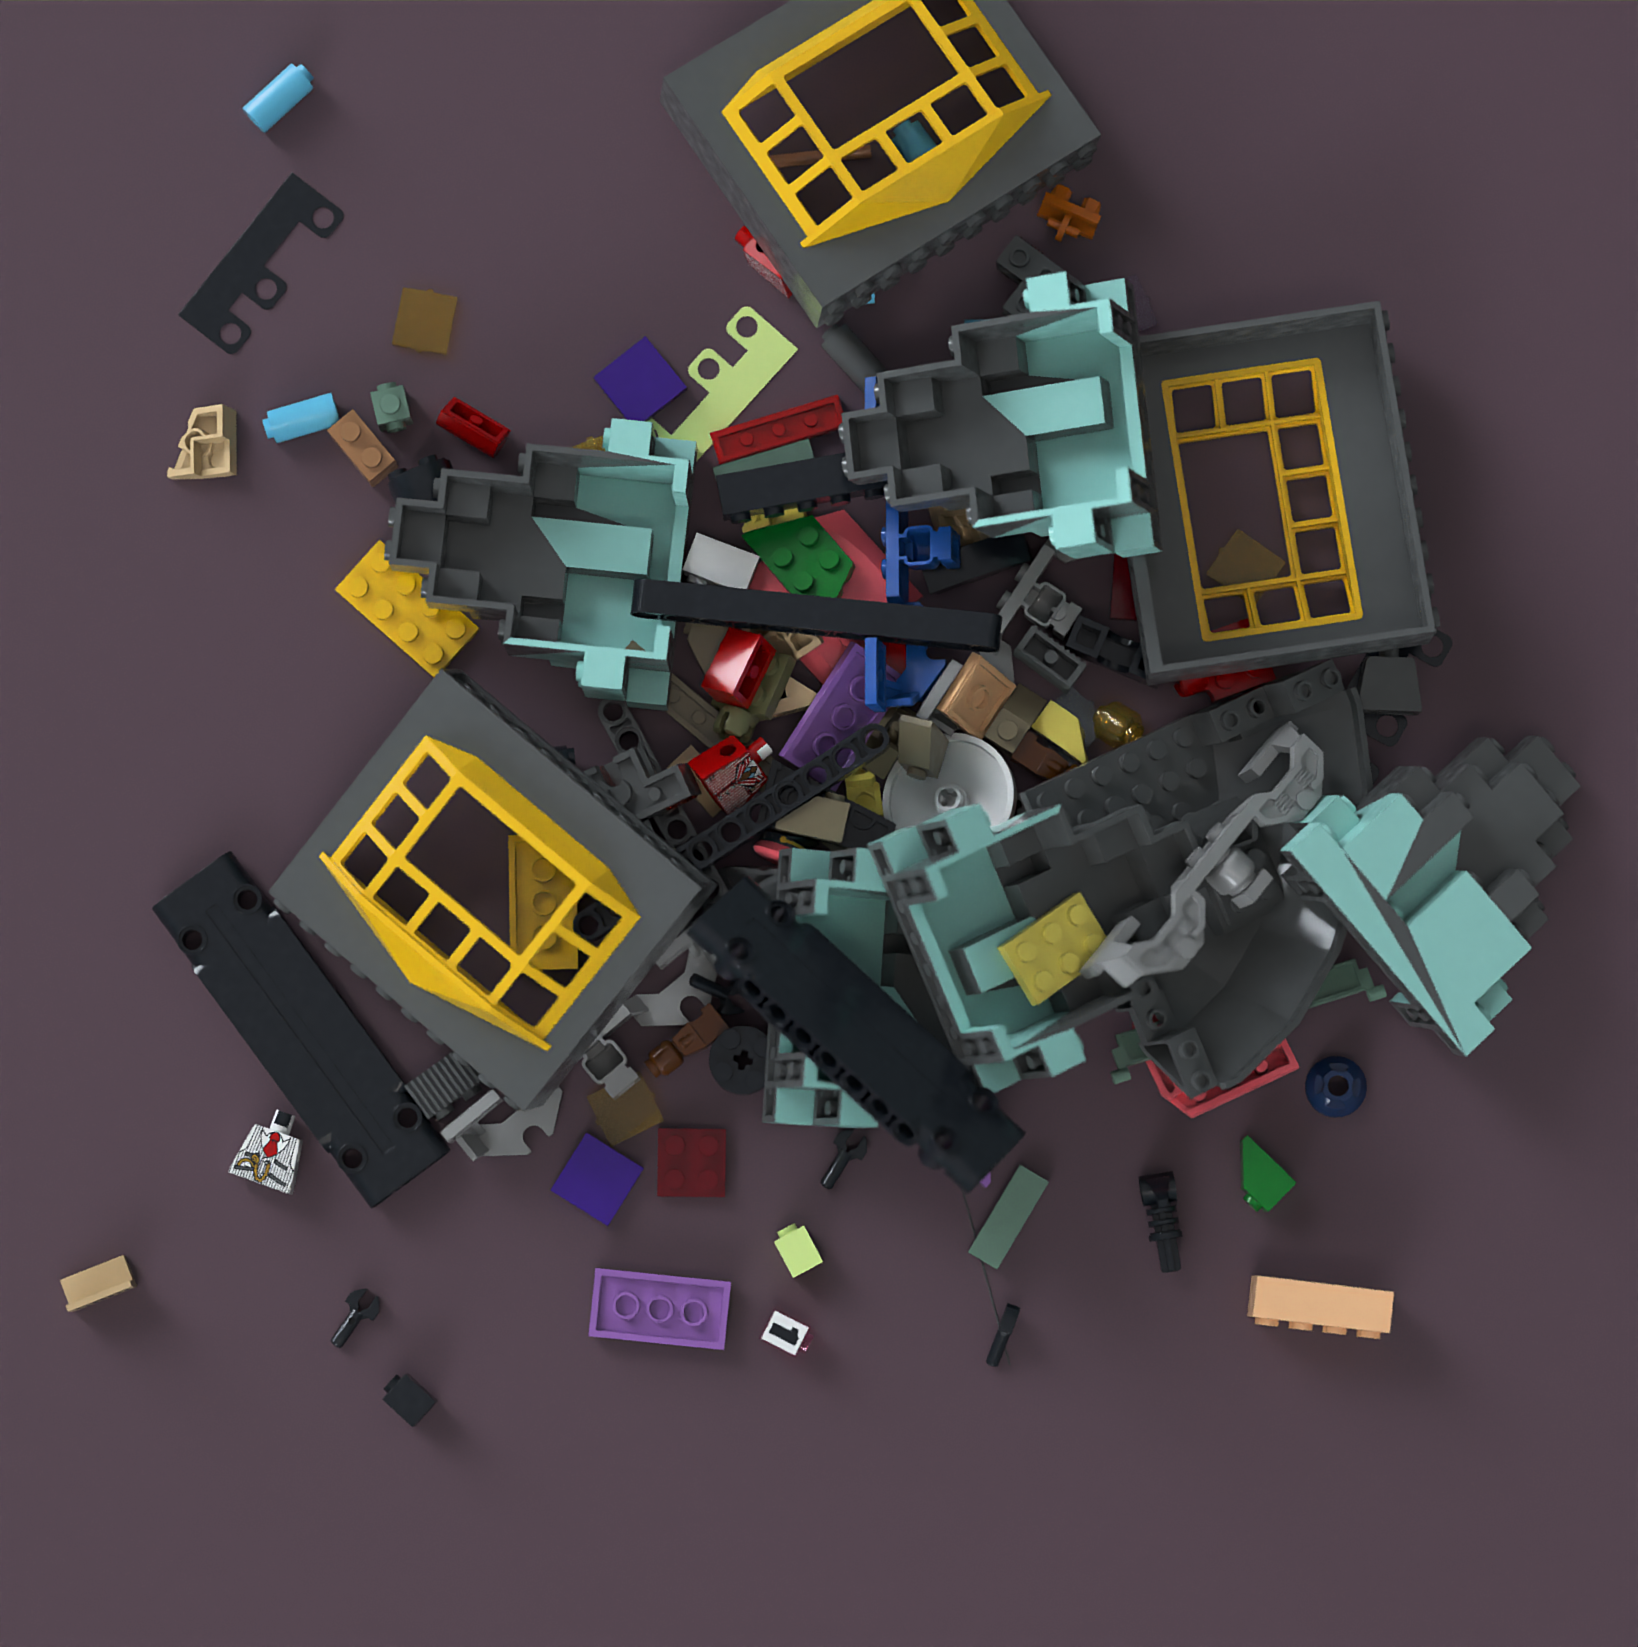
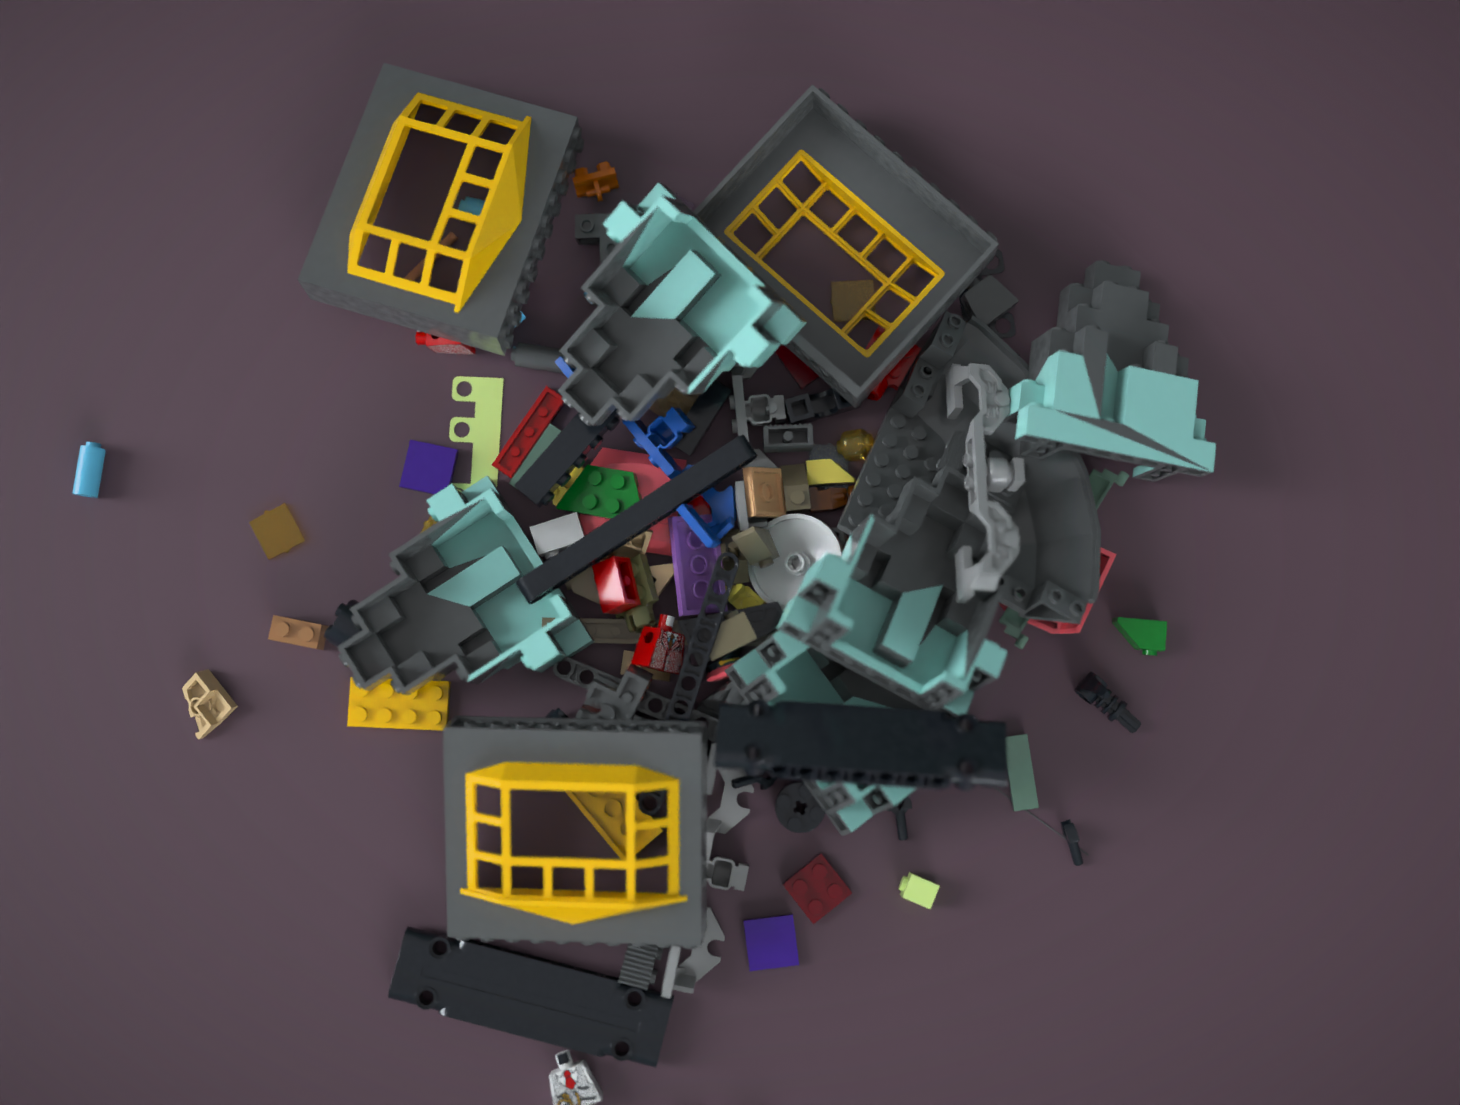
camera: 40 degrees left, 0 degrees up
(246, 259) = (146, 580): black piece -> none
(301, 418) = (249, 643): medium azure brick -> none
(391, 407) = (296, 595): sand green brick -> none
(473, 427) = (353, 569): red brick -> none
(626, 1115) = (758, 891): clear yellow piece -> none
(659, 1309) = (867, 988): medium lavender plate -> none
(688, 1041) = (761, 815): reddish brown piece -> none
(786, 1333) = (951, 943): brick -> none
(1053, 948) = (931, 601): light yellow plate -> none
(1317, 1086) = (1128, 549): dark blue piece -> none
(1320, 1304) = (1237, 680): light nougat brick -> none

